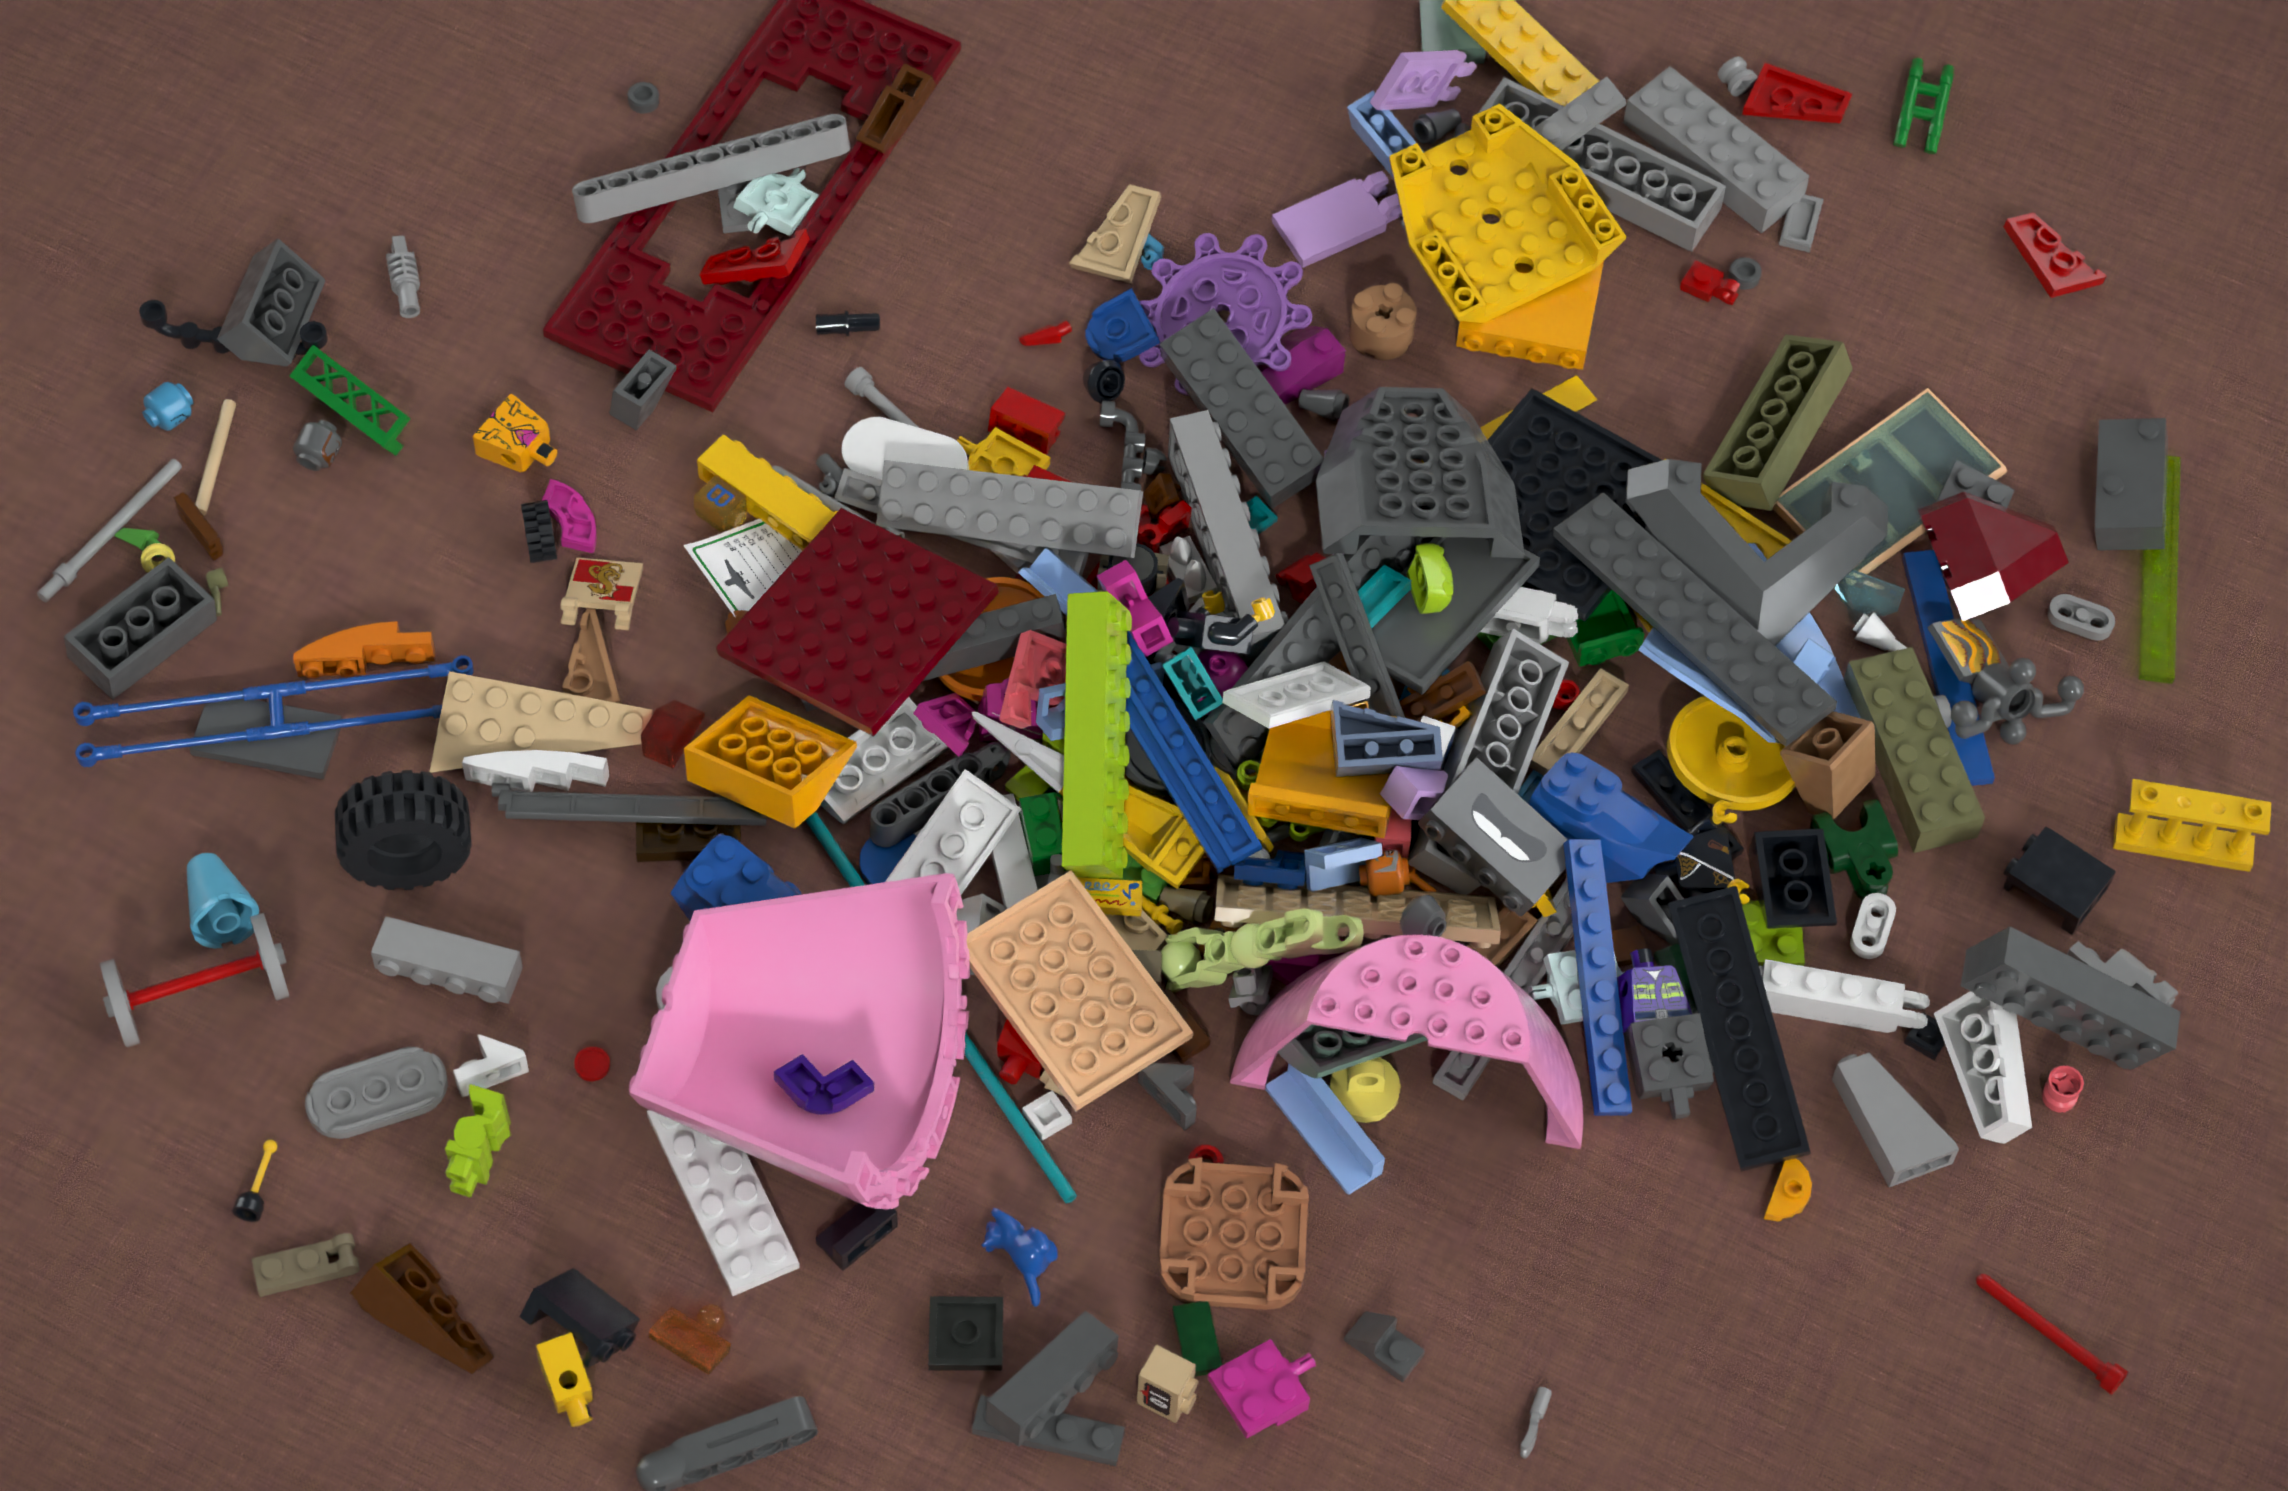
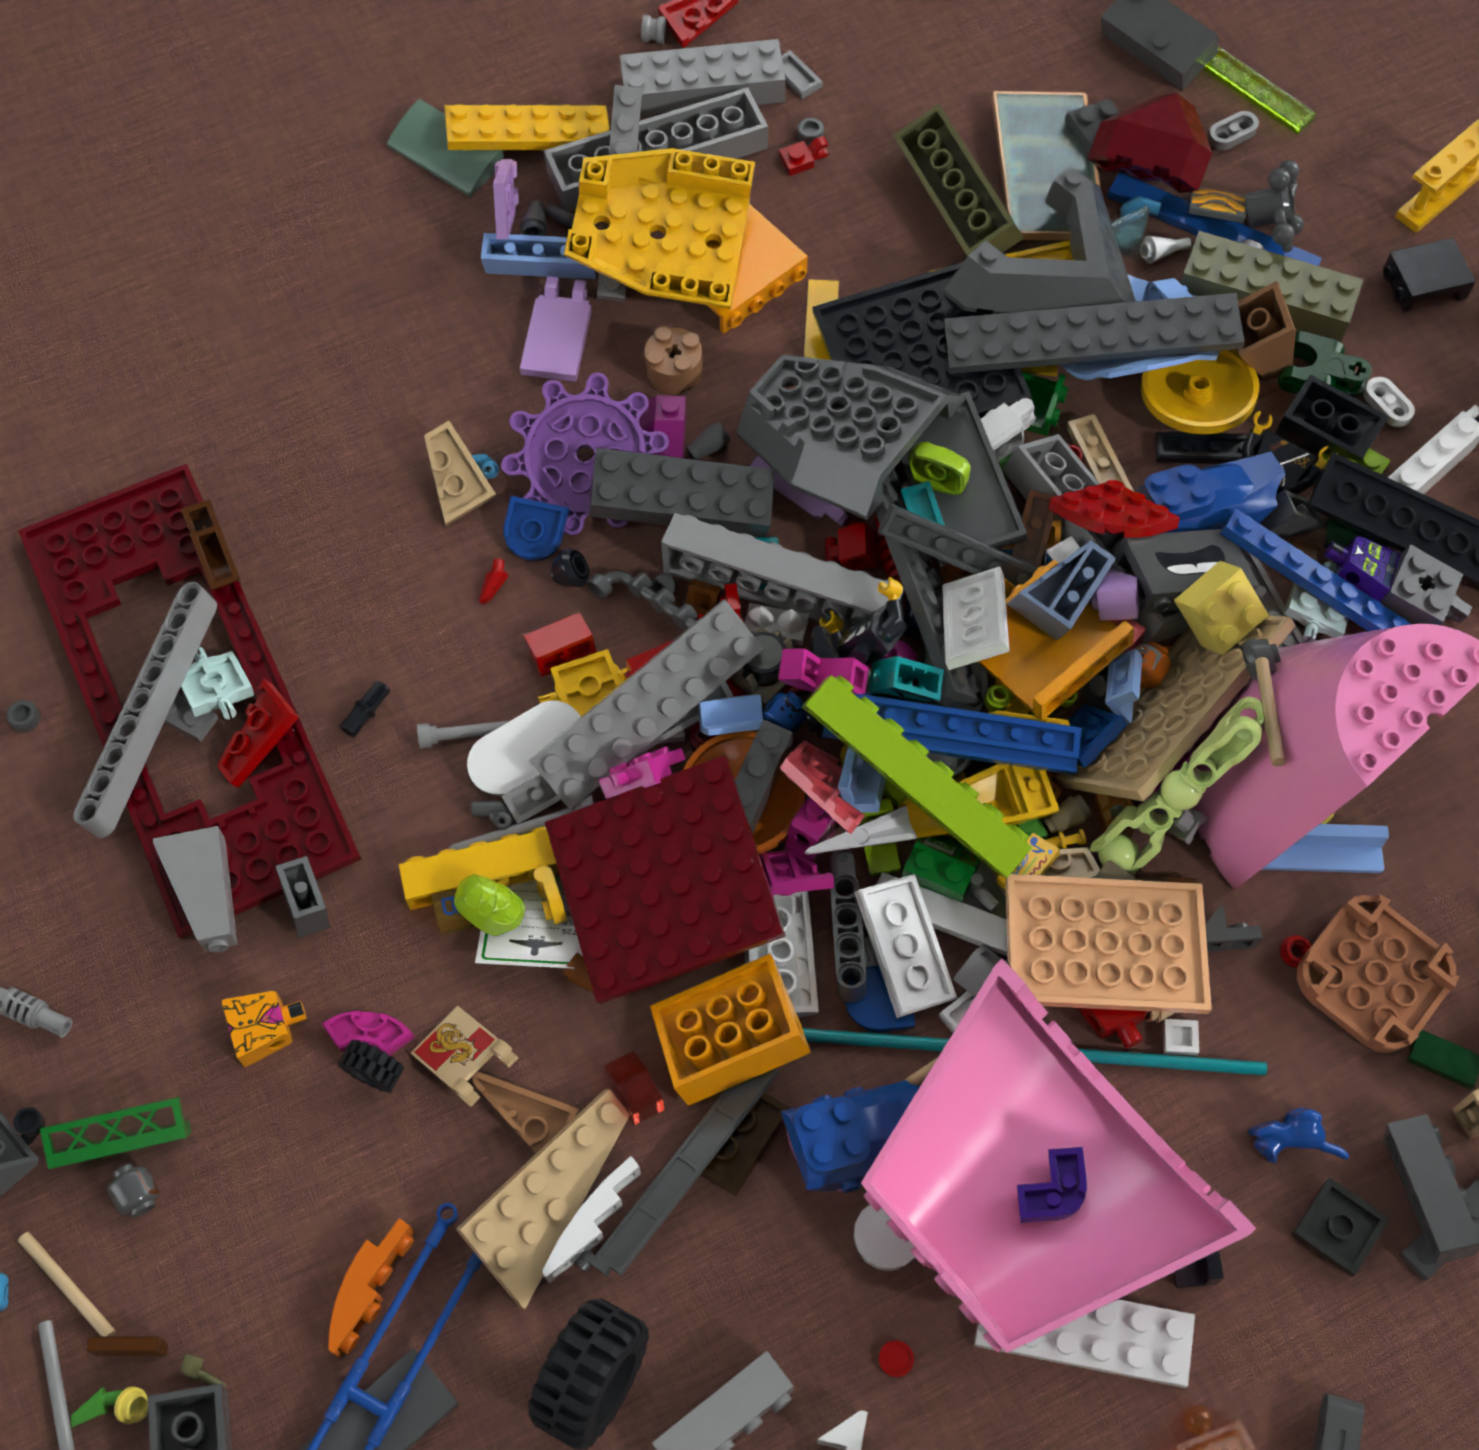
camera: 50 degrees left, 5 degrees up
(594, 312) = (201, 880): none -> light grey slope
(738, 519) = (489, 905): none -> lime piece
(777, 565) = (548, 889): none -> yellow plate
(946, 544) = (641, 771): none -> dark pink plate
(1356, 941) = (1270, 712): none -> tan bar
(1472, 877) = (1221, 607): none -> light yellow brick
(1504, 739) = (1114, 510): none -> red plate
(1912, 590) = (1139, 202): none -> dark azure arm

